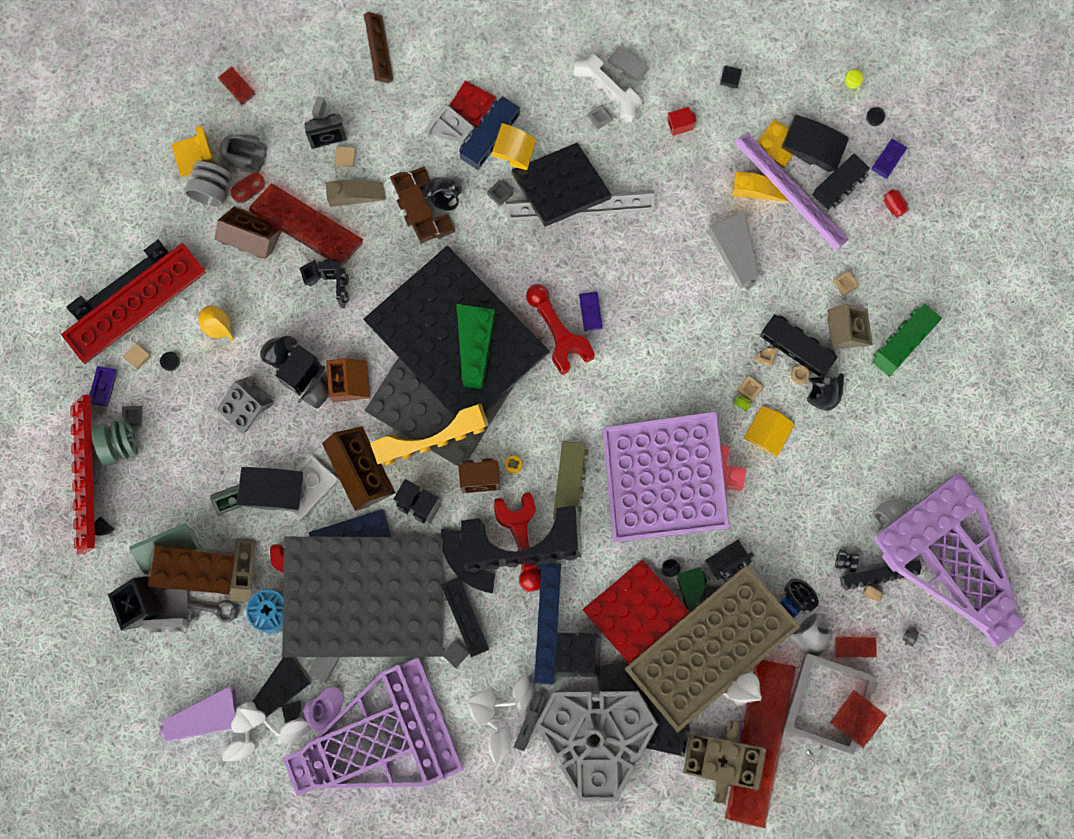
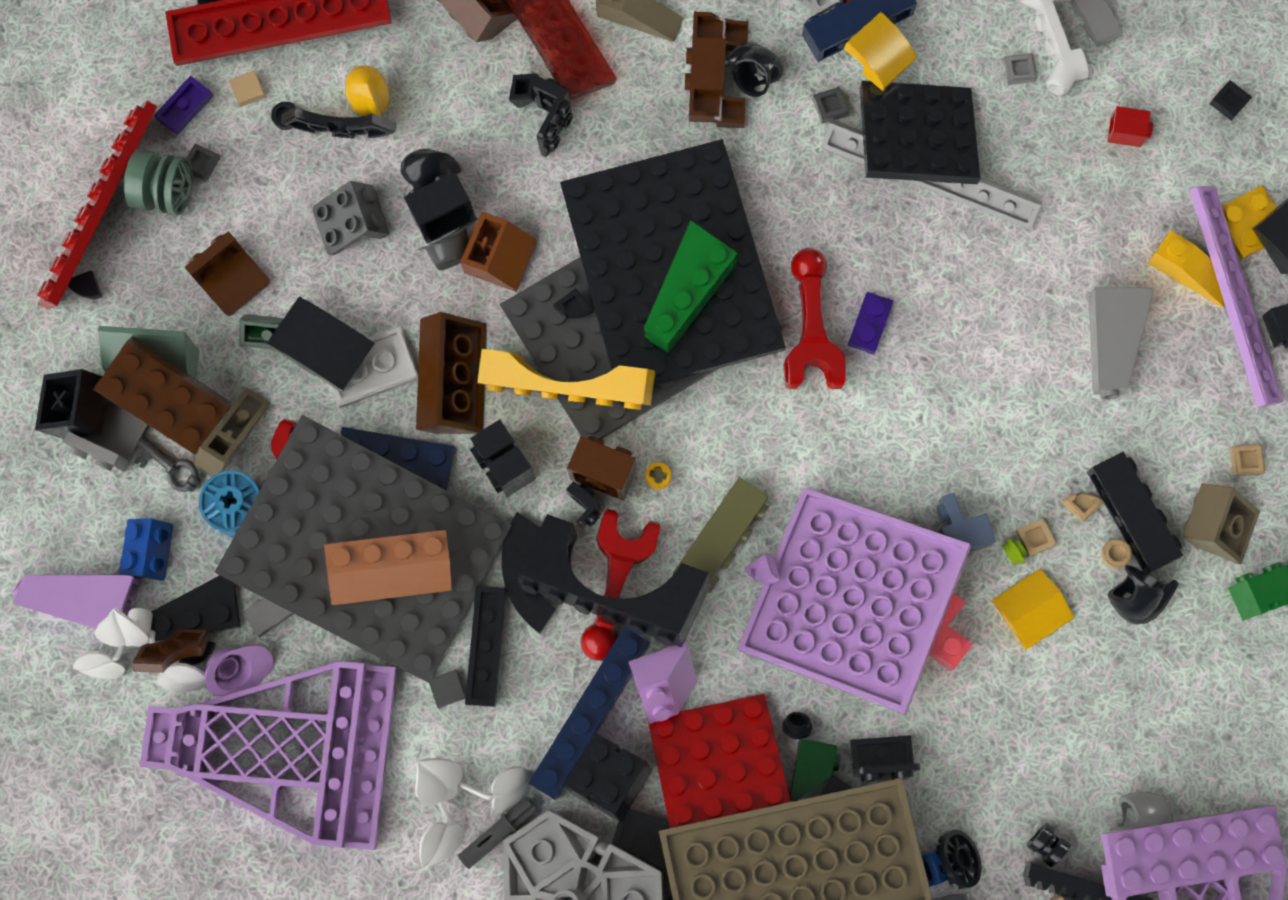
camera: 30 degrees right, 0 degrees up
(187, 476) = (227, 274): none -> reddish brown bracket
(207, 352) = (339, 126): none -> black tile
(227, 666) = (146, 548): none -> blue bracket
(275, 722) = (160, 655): none -> reddish brown tile
(384, 600) = (388, 567): none -> nougat slope
(410, 389) = (573, 305): none -> black tile
(476, 499) = (585, 497): none -> black bracket
(581, 582) = (664, 681): none -> lavender slope
(604, 488) = (763, 569): none -> lavender tile
(713, 403) = (974, 530): none -> sand blue brick

